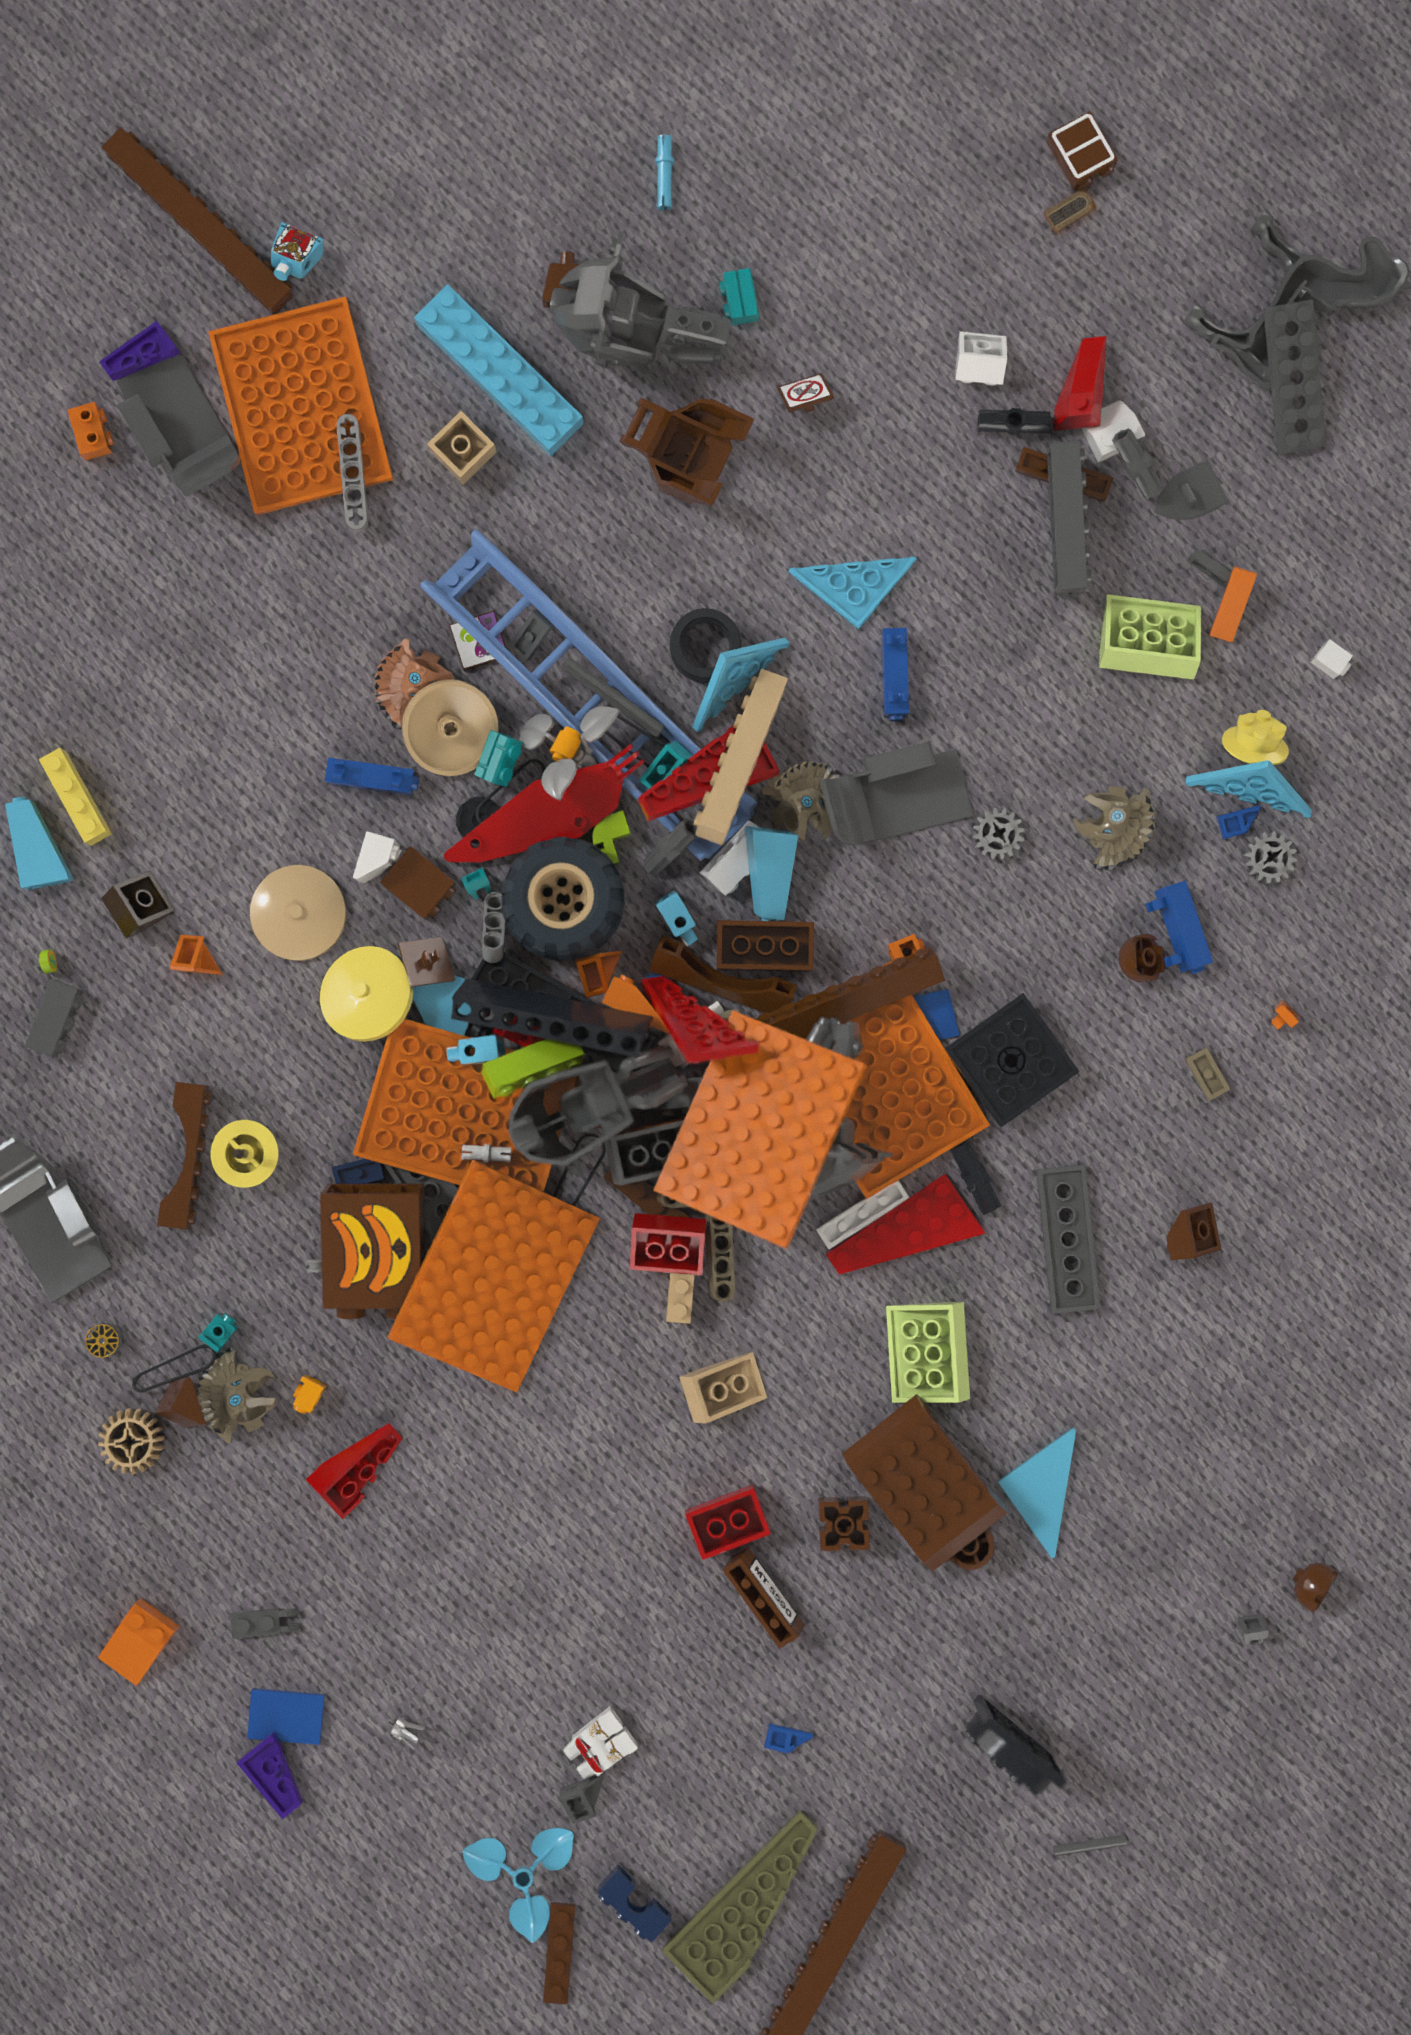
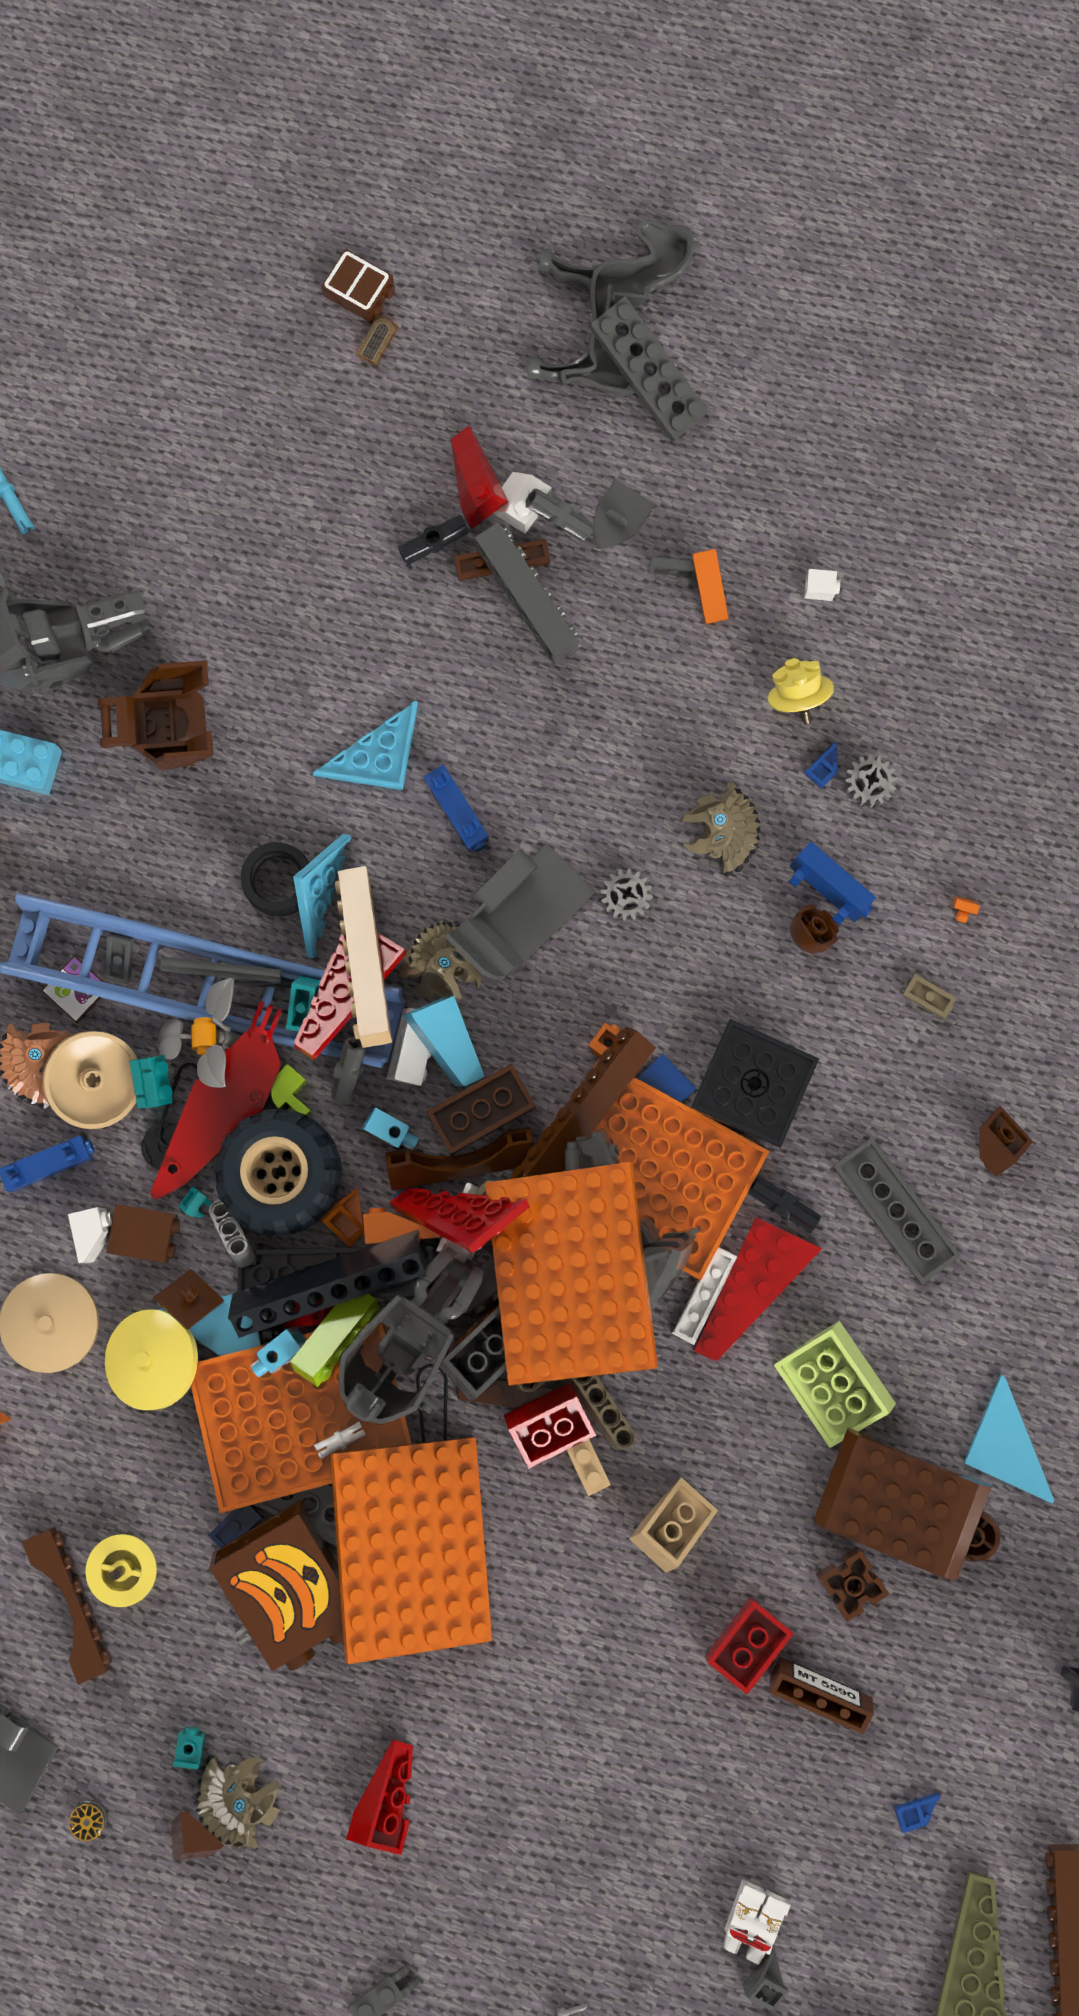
camera: 35 degrees left, 5 degrees down
(130, 1430) = (152, 1880): tan gear -> none
(178, 1377) = (174, 1816): black piece -> none
(308, 1394) = (304, 1757): light orange brick -> none
(740, 297) = (136, 566): teal brick -> none
(805, 393) = (240, 616): piece -> none
(981, 358) = (374, 503): white slope -> none
(1151, 637) = (657, 653): yellowish green slope -> none
(1252, 784) = (817, 726): medium azure tile -> none

